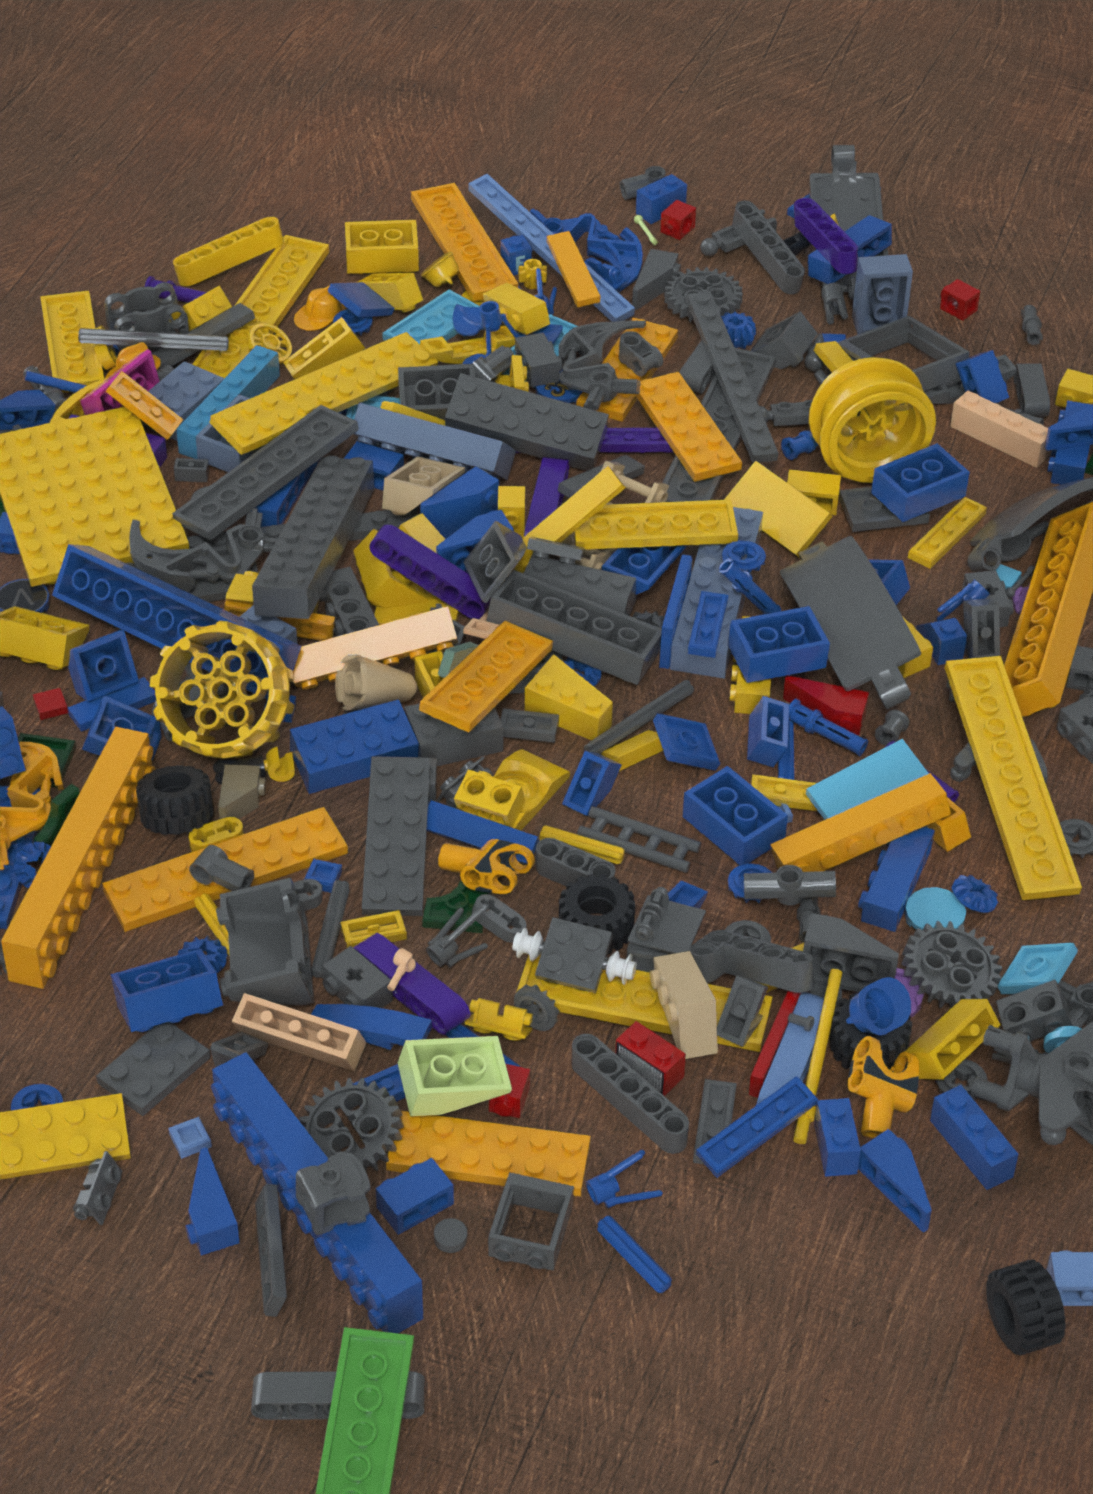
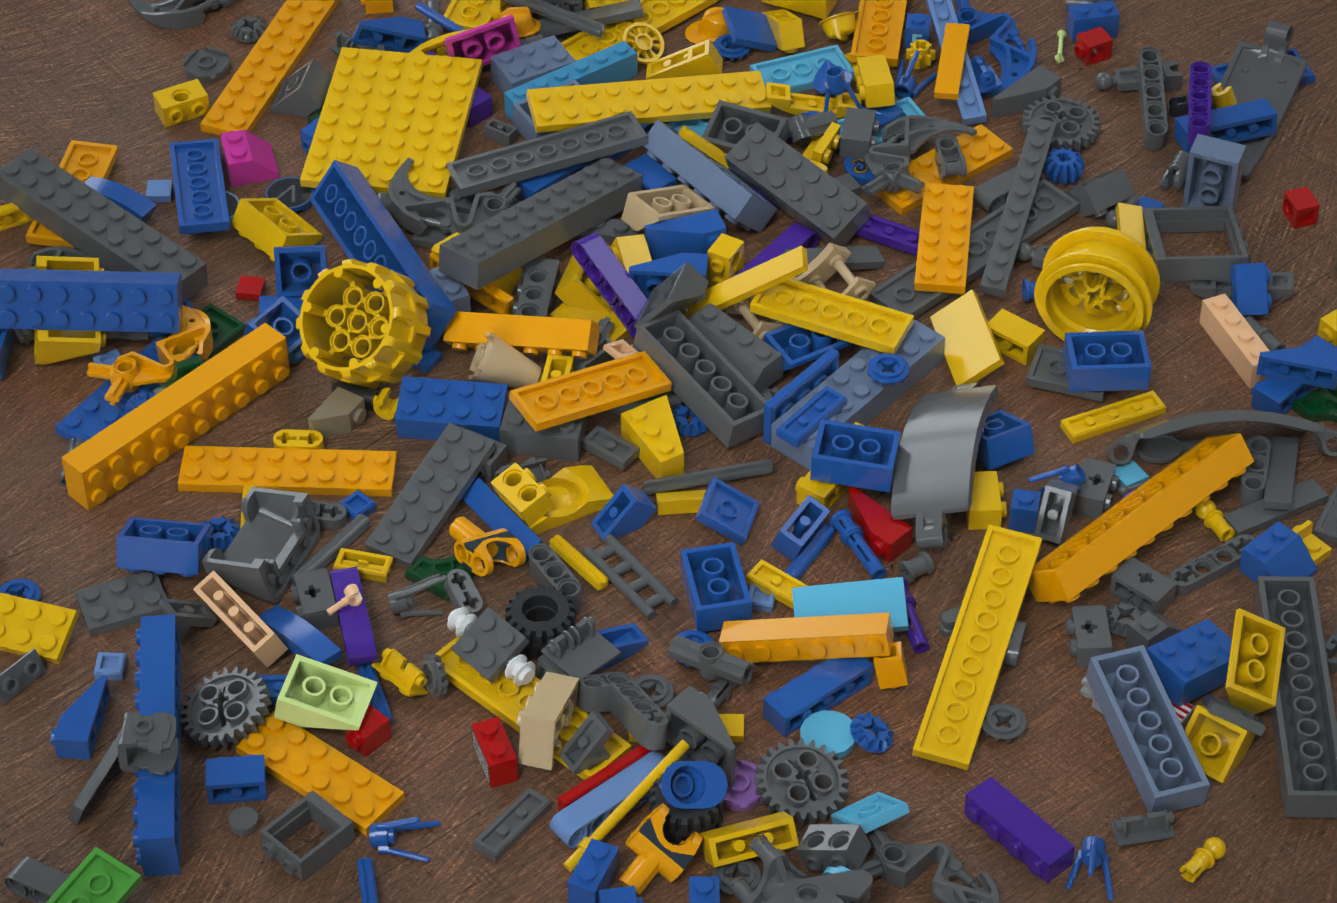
camera: 30 degrees right, 0 degrees up
(144, 405) = (484, 62): light orange plate -> none
(174, 799) = (280, 400): black tyre -> none
(215, 867) = (270, 466): dark grey piece -> none
(454, 656) = (568, 363): sand green tile -> none
(544, 547) = (720, 300): dark grey plate -> none
(630, 1093) = (458, 773): dark grey beam -> none
(743, 583) = (869, 391): blue pin -> none
(756, 1126) = (533, 839): blue tile -> none
(805, 1022) = (634, 775): dark grey piece -> none
(1032, 389) = (1298, 314): dark grey beam -> none

